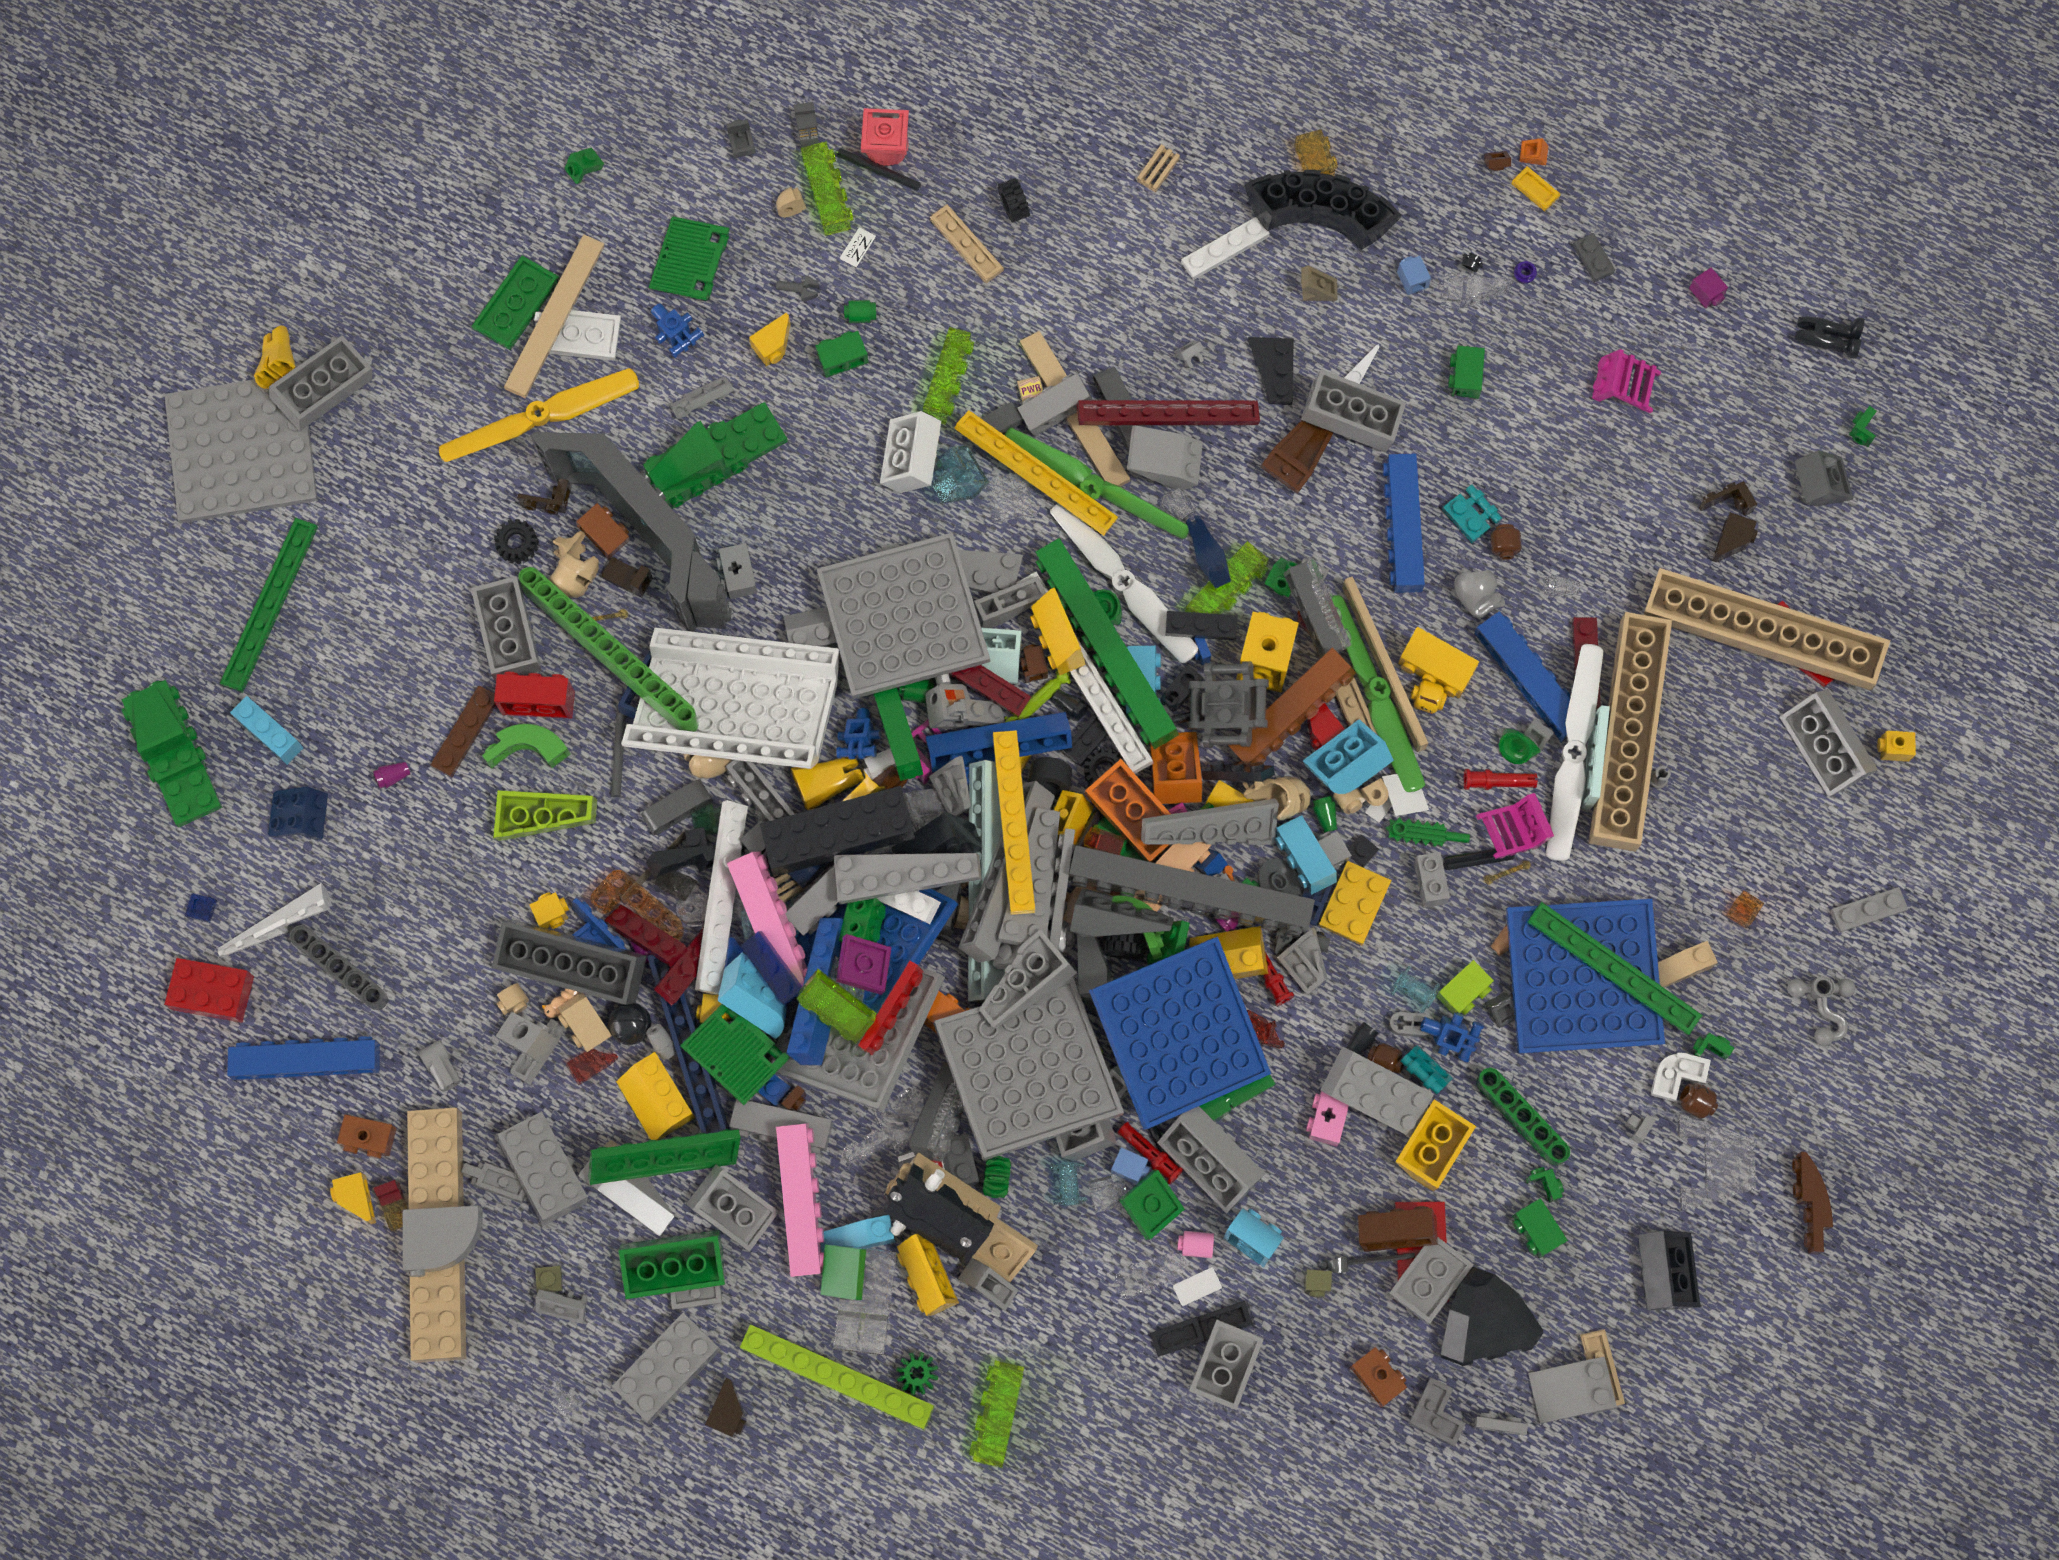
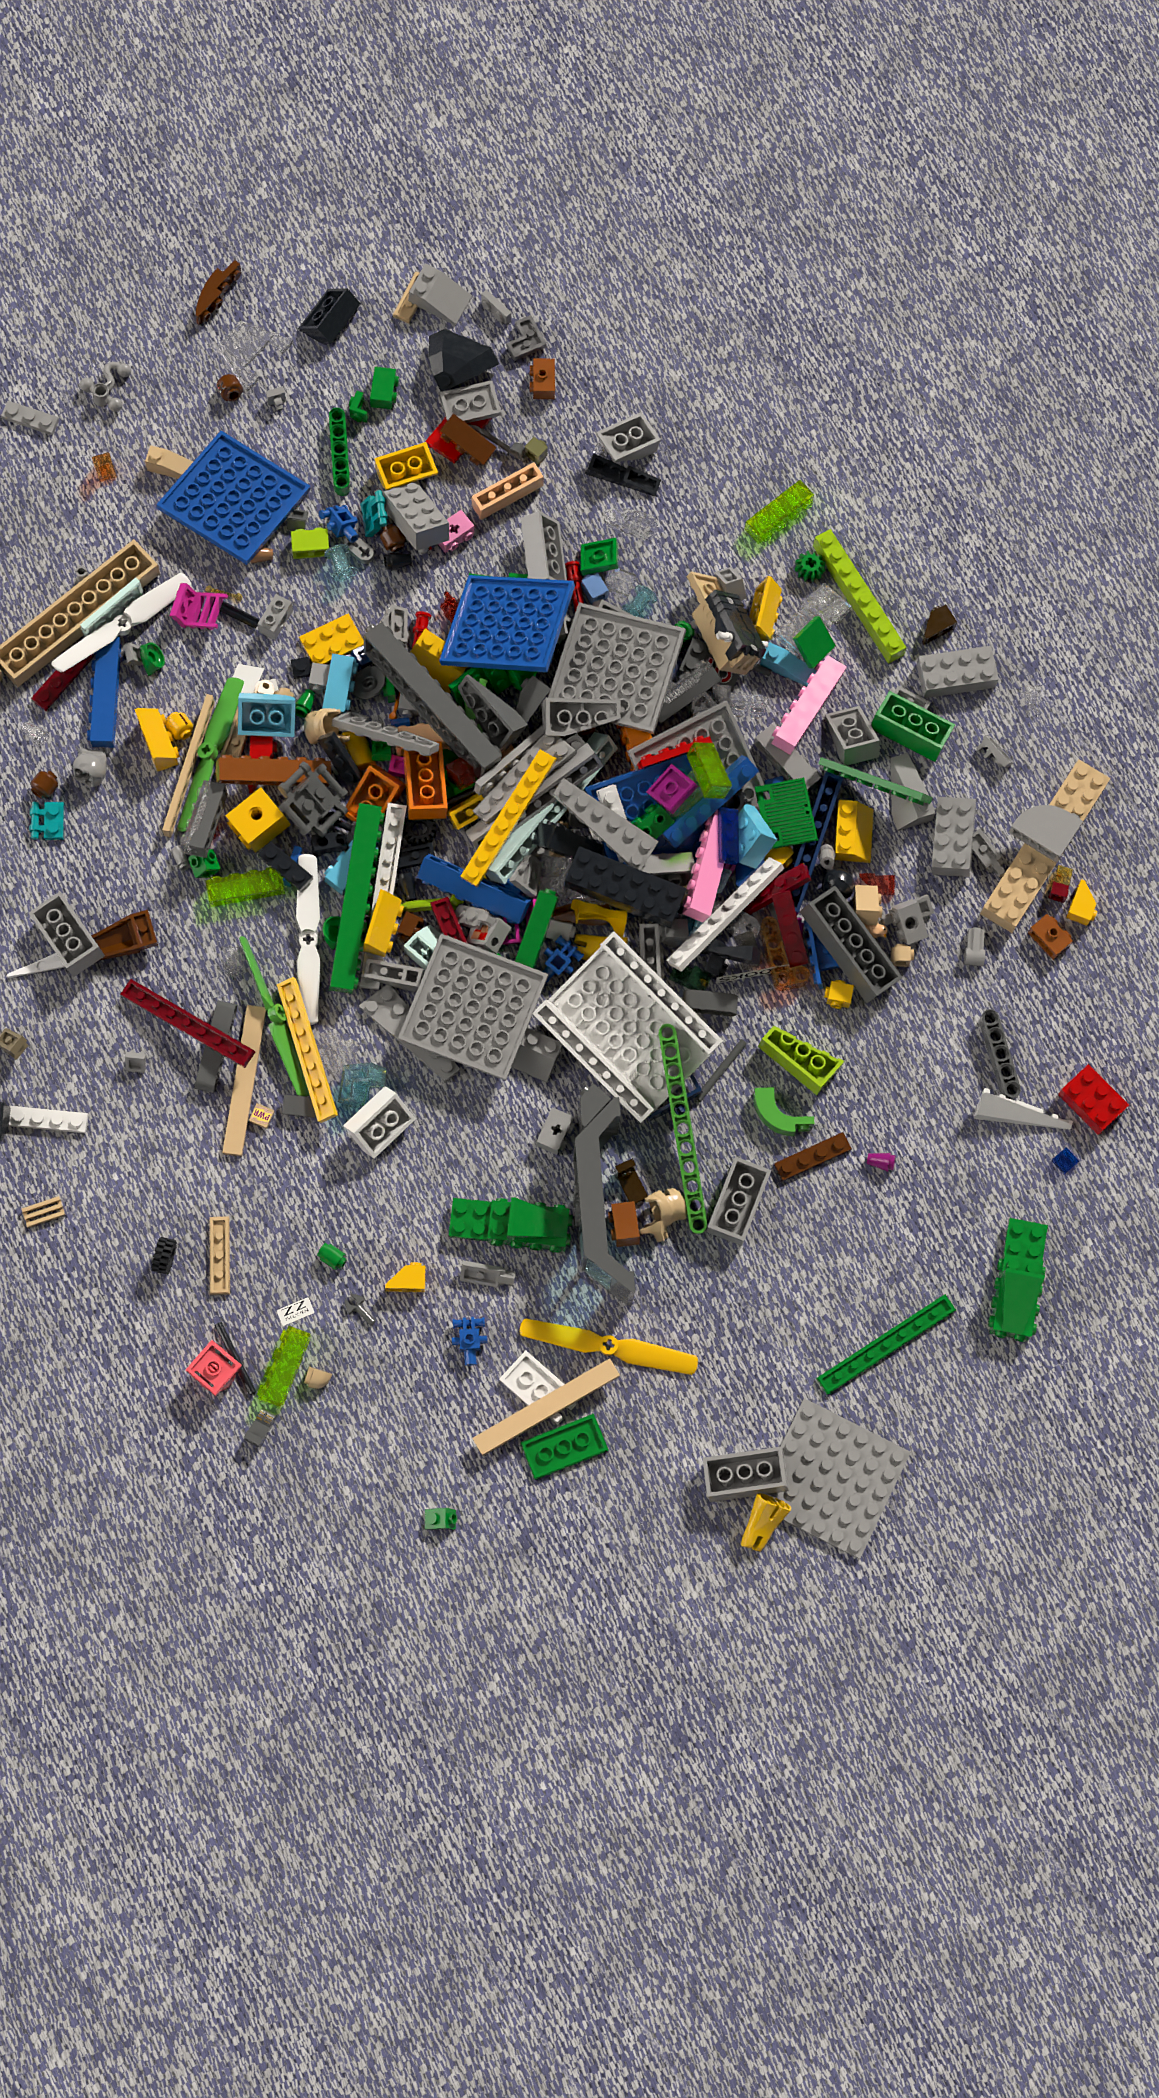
camera: 150 degrees left, 0 degrees up
(266, 730) = (945, 1249): medium azure brick -> none
(298, 813) = (962, 1178): dark blue bracket -> none
(303, 1059) = (1060, 1013): blue brick -> none
(516, 554) = (688, 1275): black tyre -> none
(534, 695) = (751, 1138): red brick -> none
(549, 1279) = (993, 774): olive plate -> none
(559, 504) = (648, 1271): dark brown bracket -> none
(623, 614) = (651, 1162): clear yellow hinge -> none
(689, 258) = (419, 1387): green window -> none
(740, 138) = (315, 1452): dark grey bracket -> none
(795, 1099) = (768, 769): reddish brown plate -> none
(842, 353) = (368, 1234): green hinge -> none
(948, 373) = (310, 1164): clear neon green brick -> none
(1051, 774) = (459, 844): black tyre -> none
(1054, 404) = (255, 1087): light grey brick -> none
(1165, 457) = (215, 992): light grey slope -> none
(1196, 1244) = (590, 519): bright pink brick -> none
(1197, 1286) = (606, 501): white sticker -> none
(1208, 553) = (240, 910): dark blue piece -> none
(1253, 1236) = (555, 491): medium azure brick -> none
(1275, 367) = (85, 1013): black wing -> none
(1308, 1205) = (507, 491): none -> light nougat brick
(1405, 523) = (96, 843): blue brick -> none
(1426, 833) = (254, 650): green piece -> none
(1487, 779) = (187, 652): red pin -> none
(1614, 968) = (214, 485): green tile -> none
(1675, 1068) = (225, 414): white plate -> none
(1717, 1045) = (196, 414): green bracket -> none

